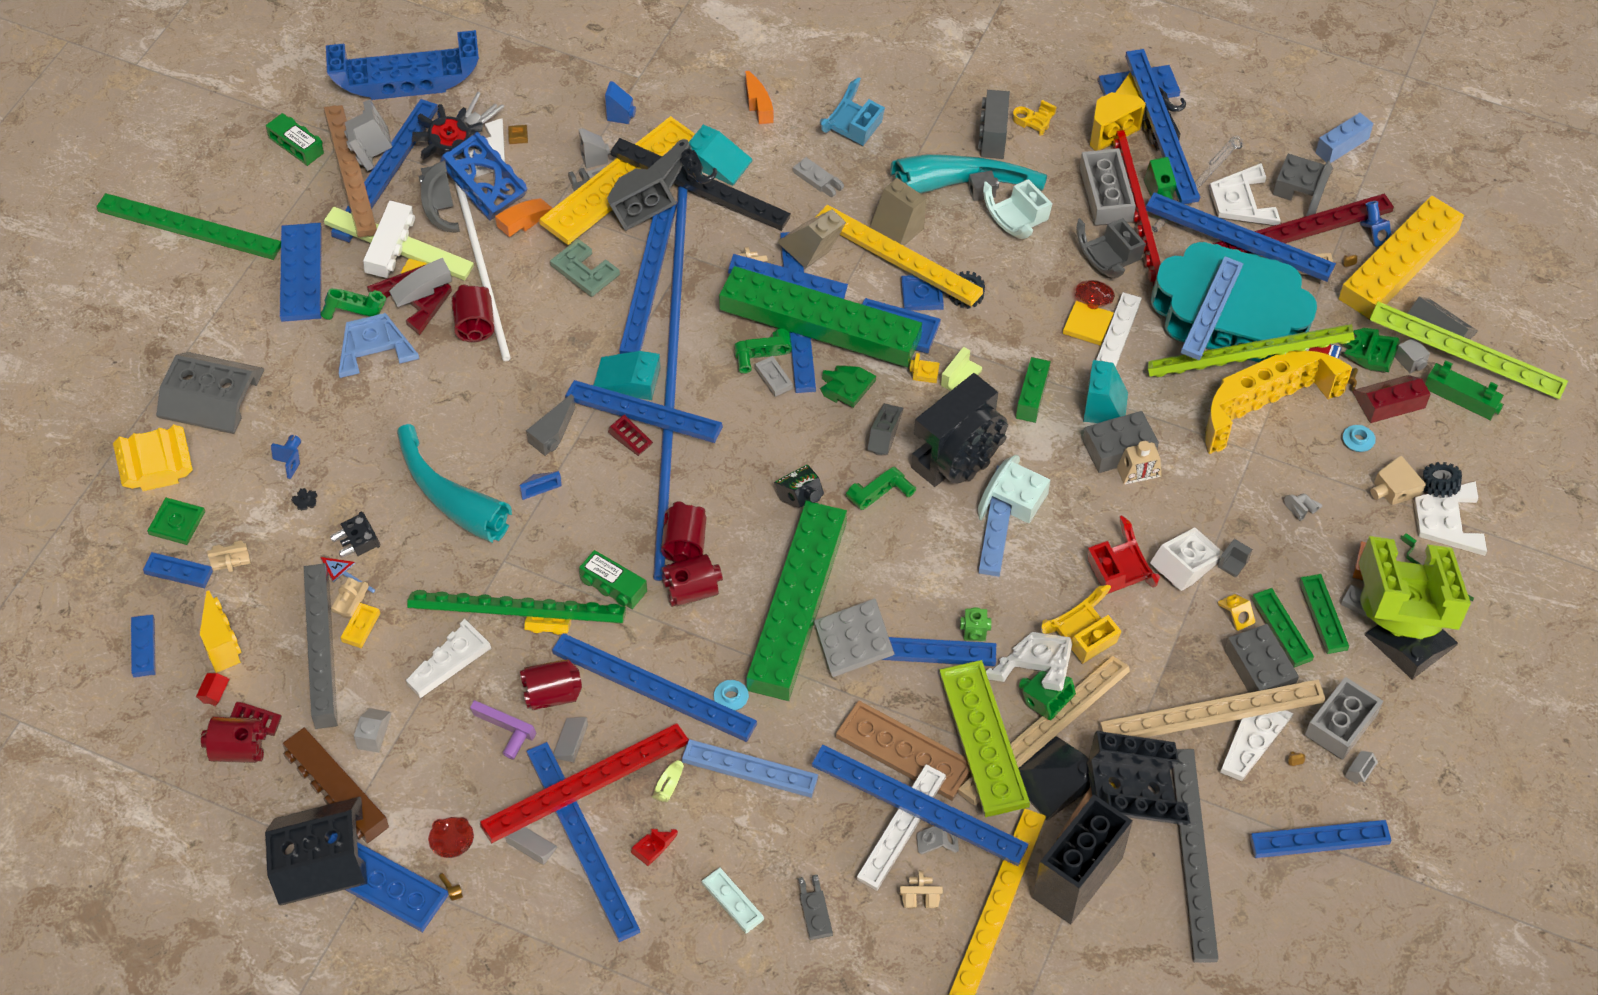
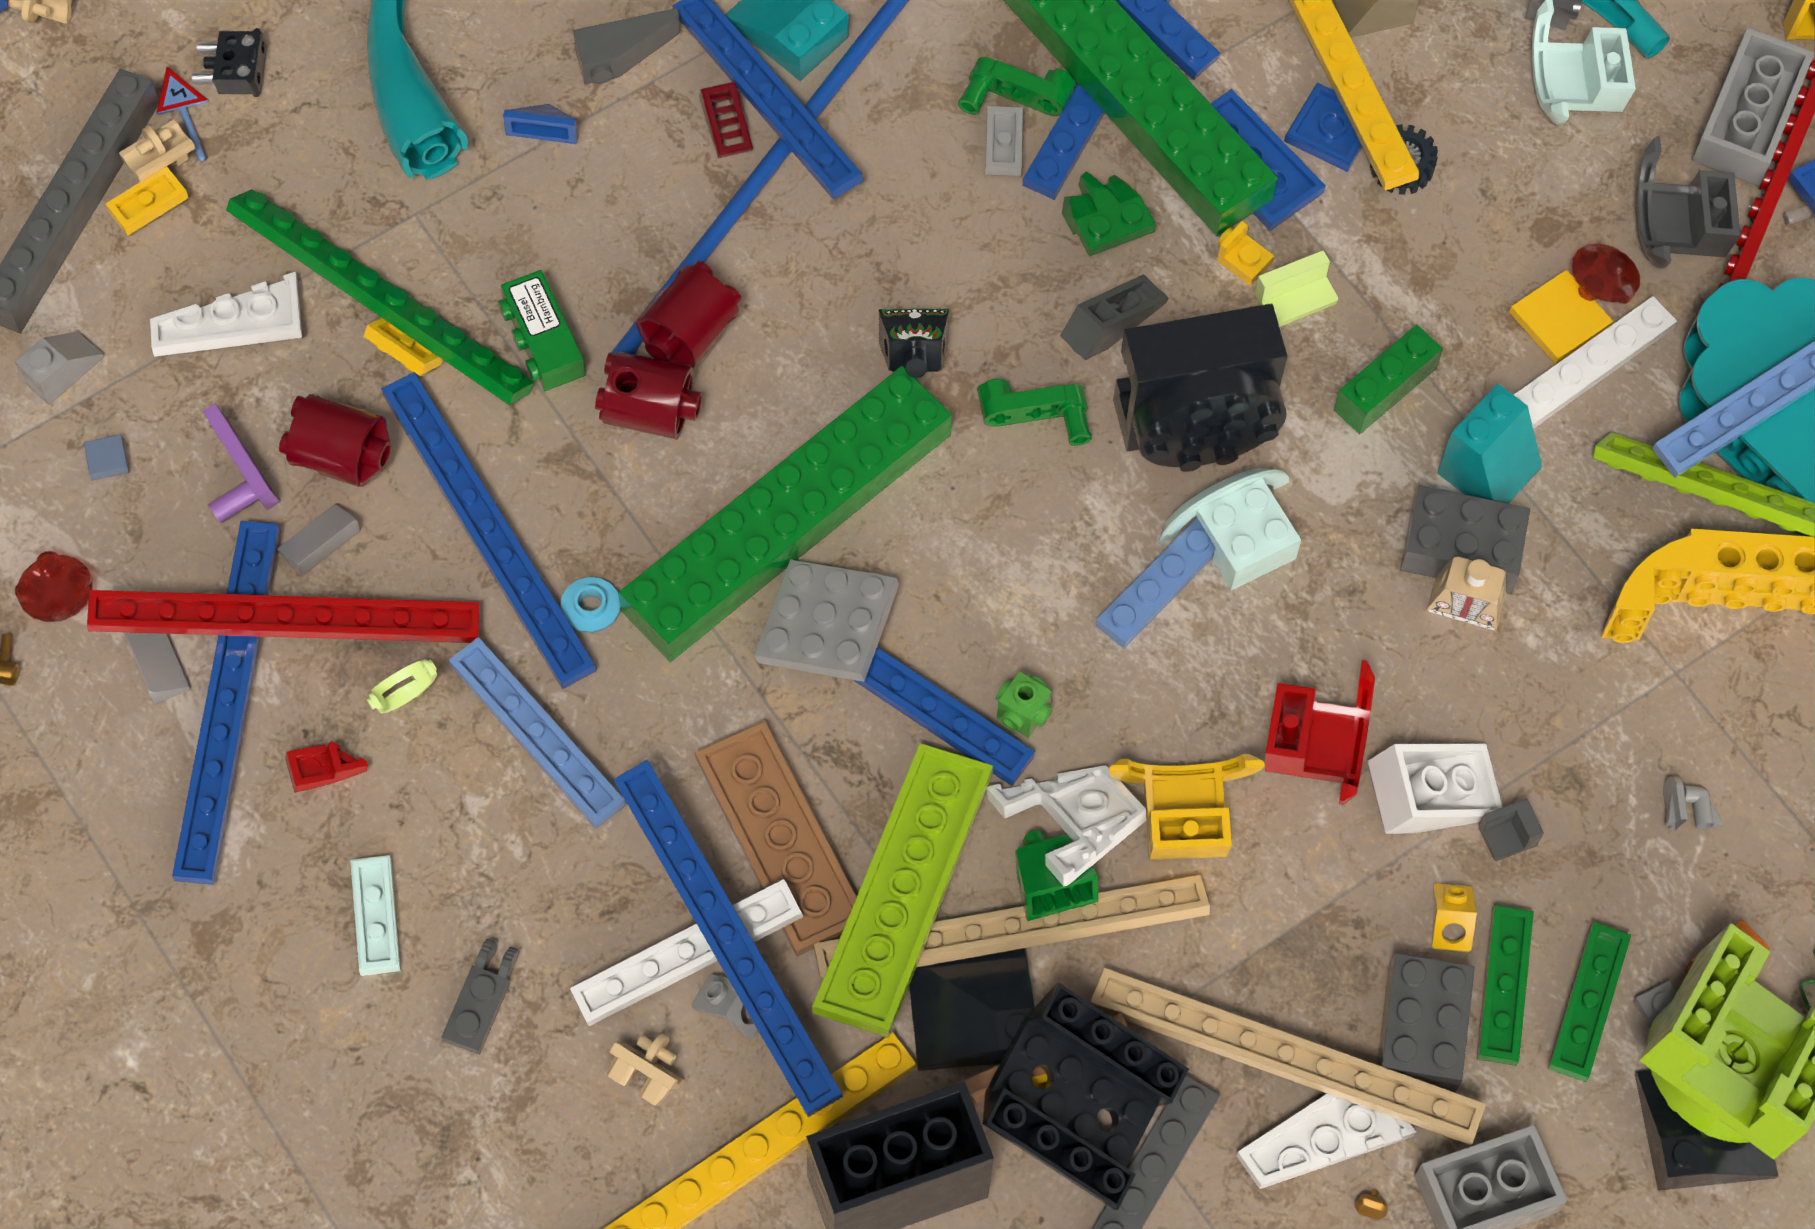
camera: 30 degrees right, 10 degrees up
(430, 760) = (106, 457): none -> sand blue tile

